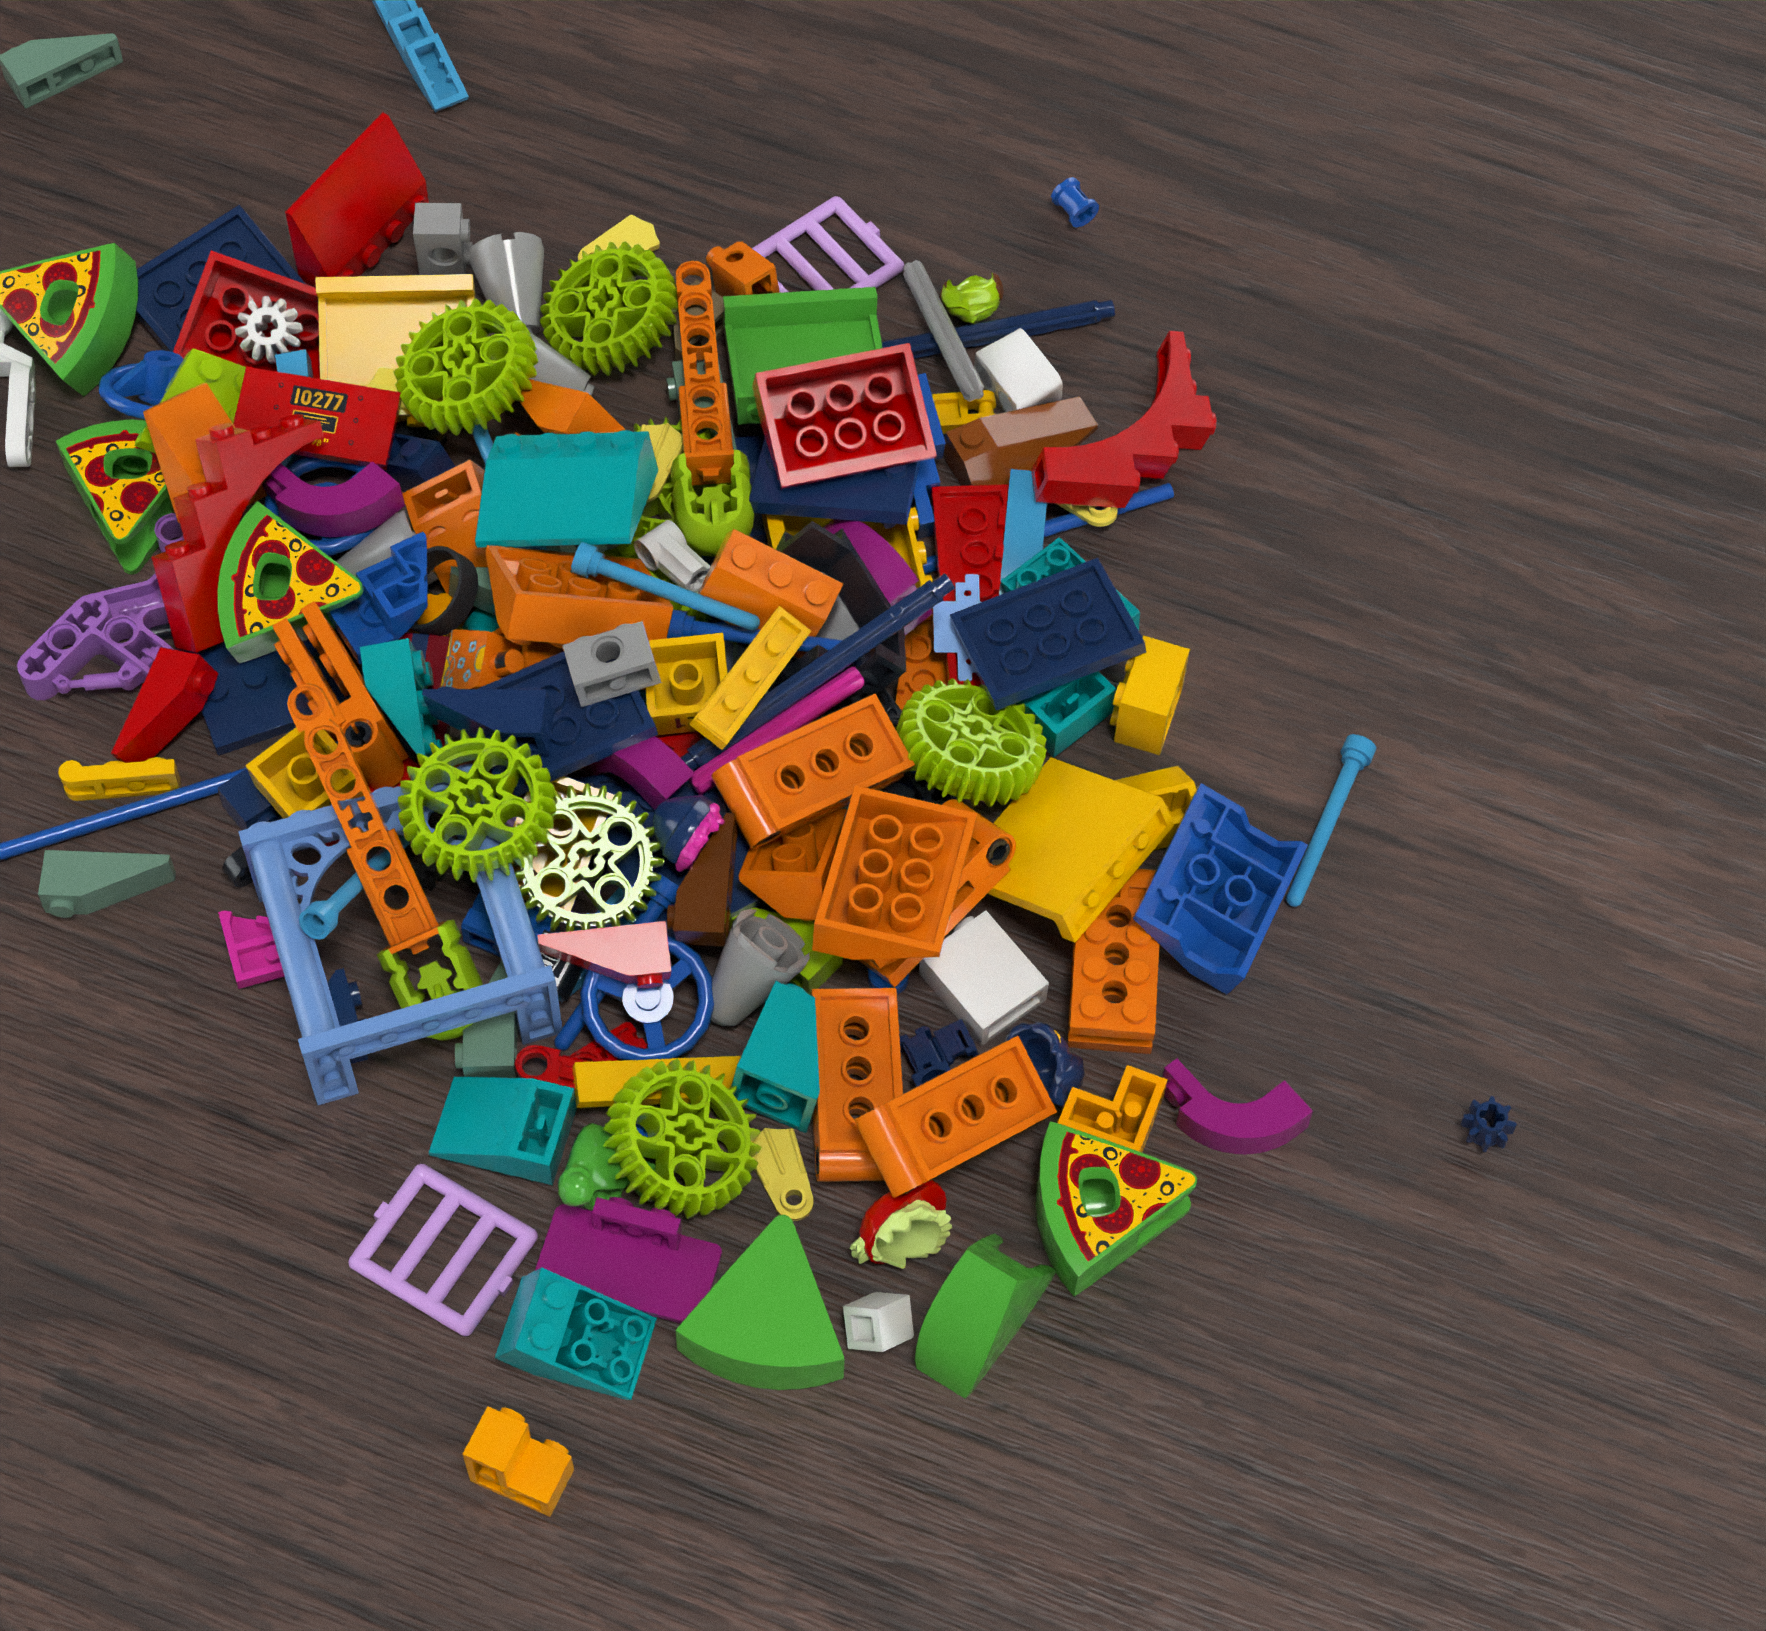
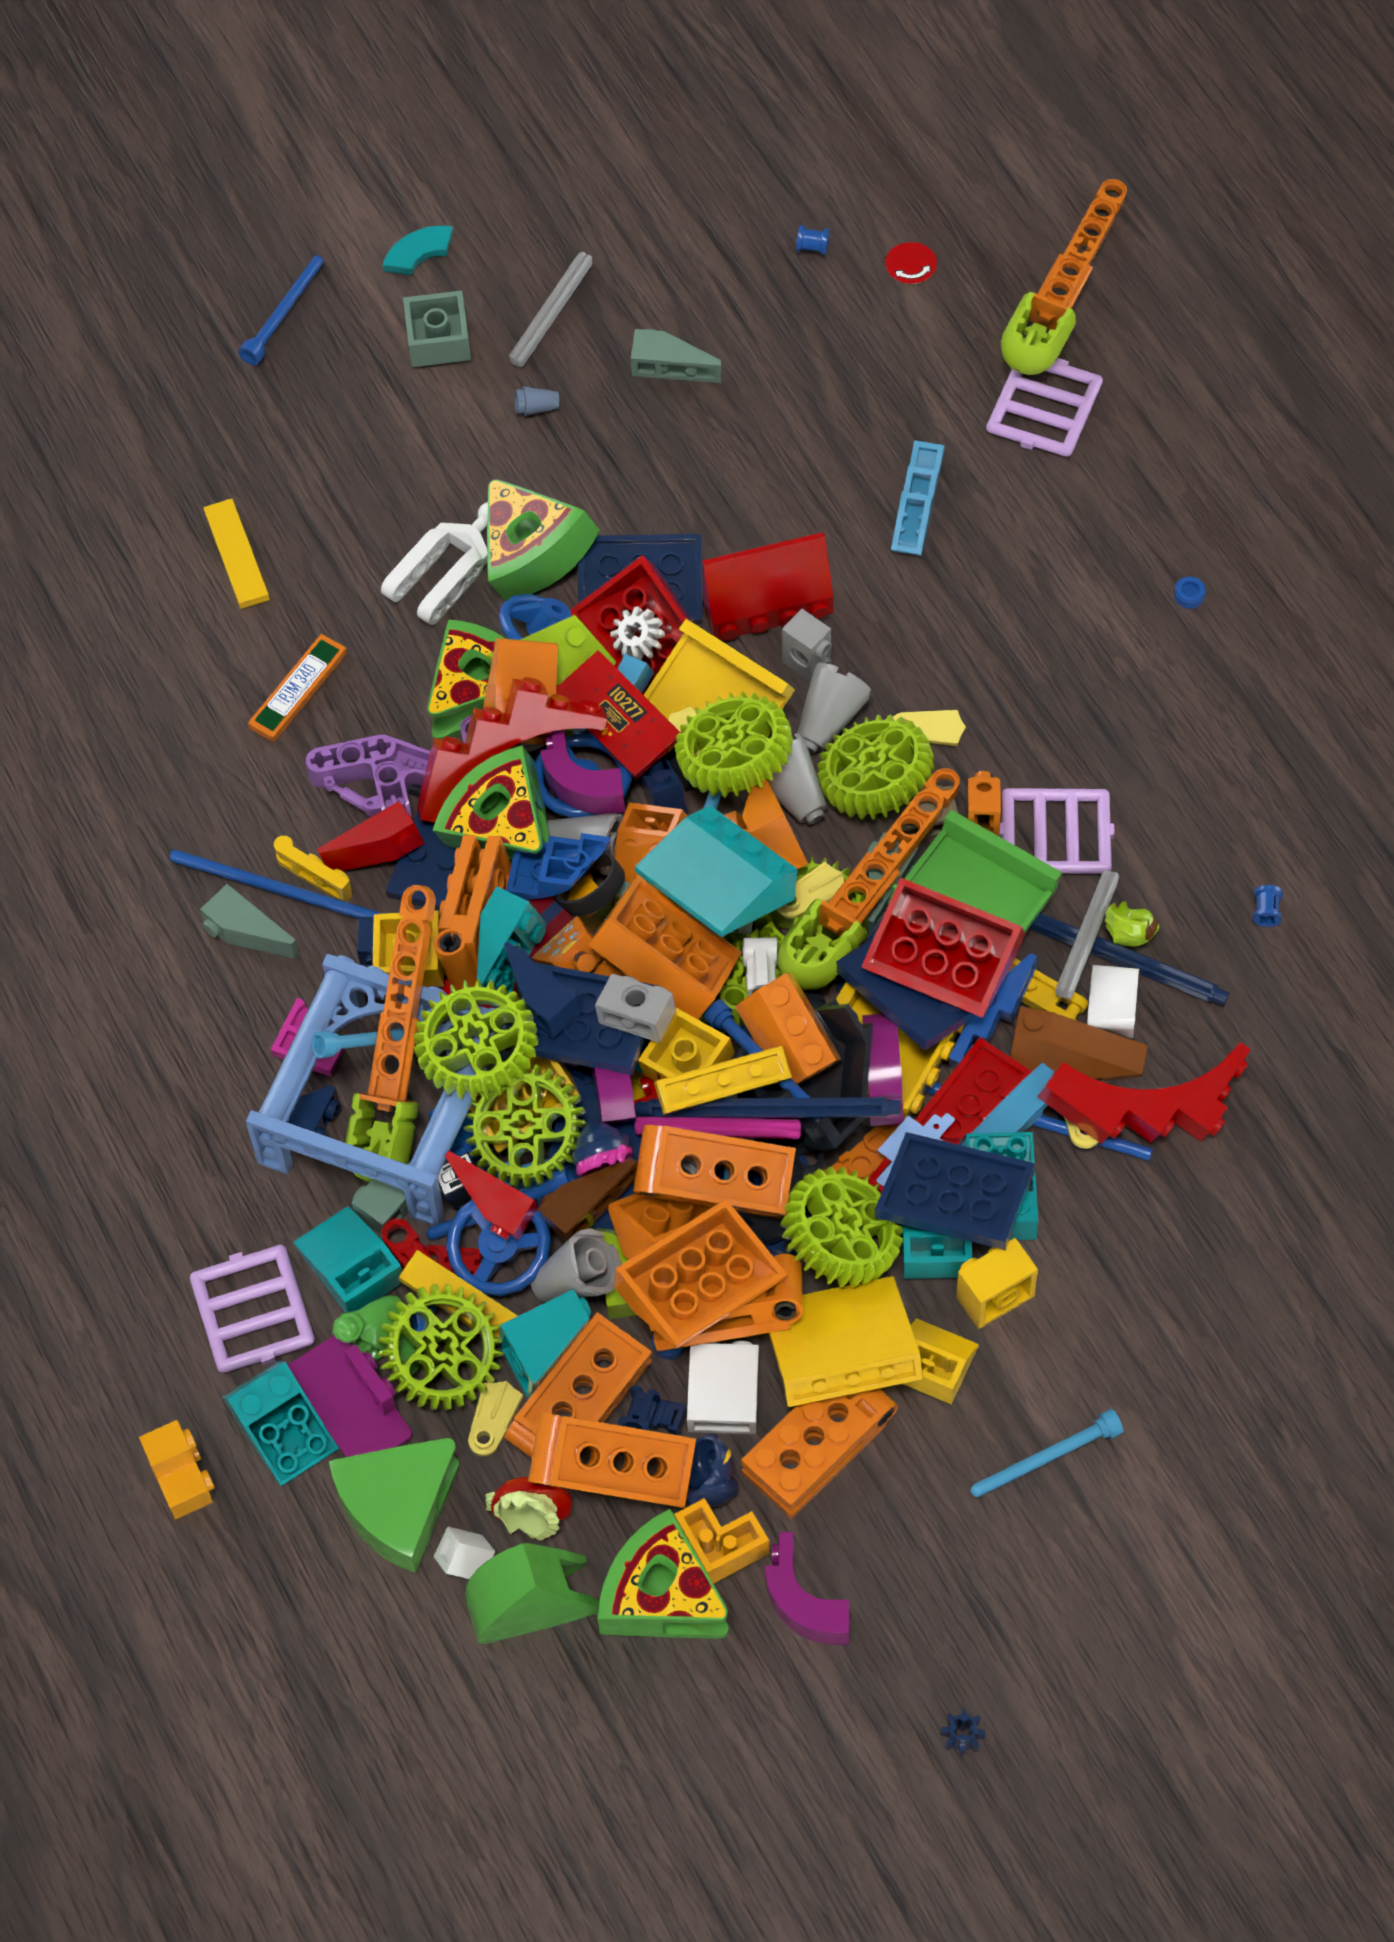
camera: 45 degrees right, 0 degrees up
(591, 562) = (688, 930): dark azure piece -> none
(1217, 890) = (918, 1441): blue piece -> none

